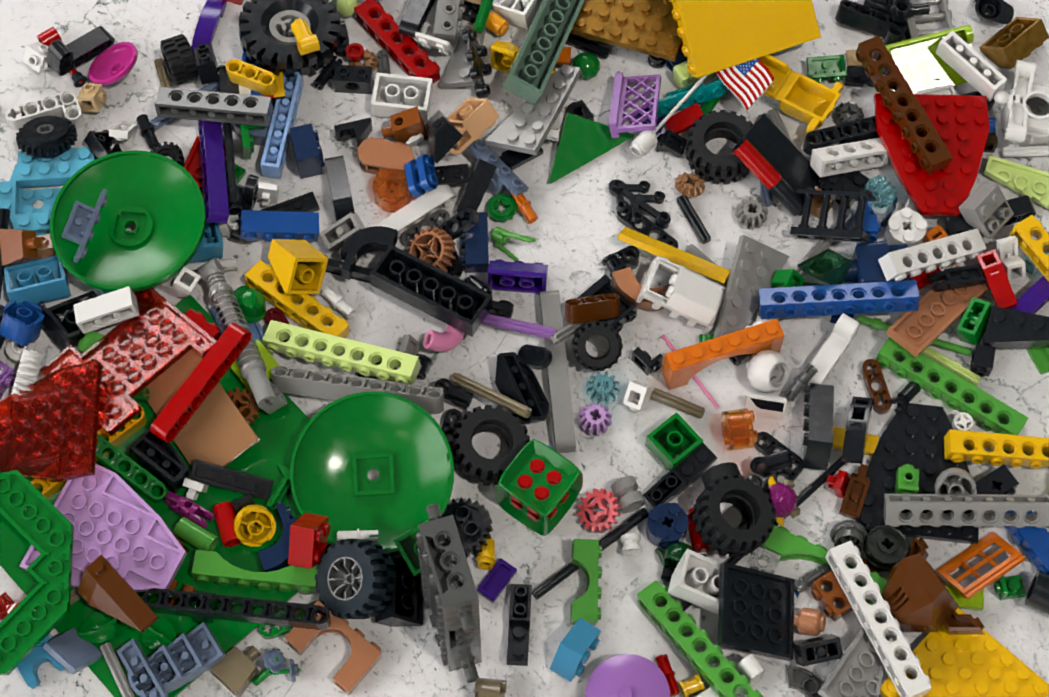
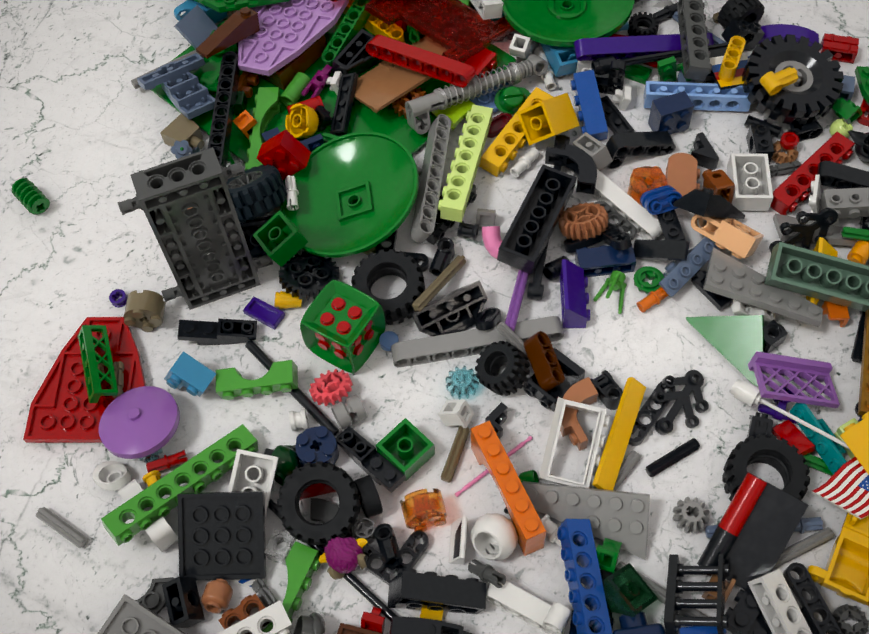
camera: 90 degrees right, 5 degrees down
(245, 587) = (244, 123): none -> orange panel
(588, 63) = (835, 339): green hair -> none
(588, 414) = (428, 378): lavender gear -> none
(688, 189) = (716, 458): medium nougat gear -> none
(693, 295) = (568, 450): white brick -> none

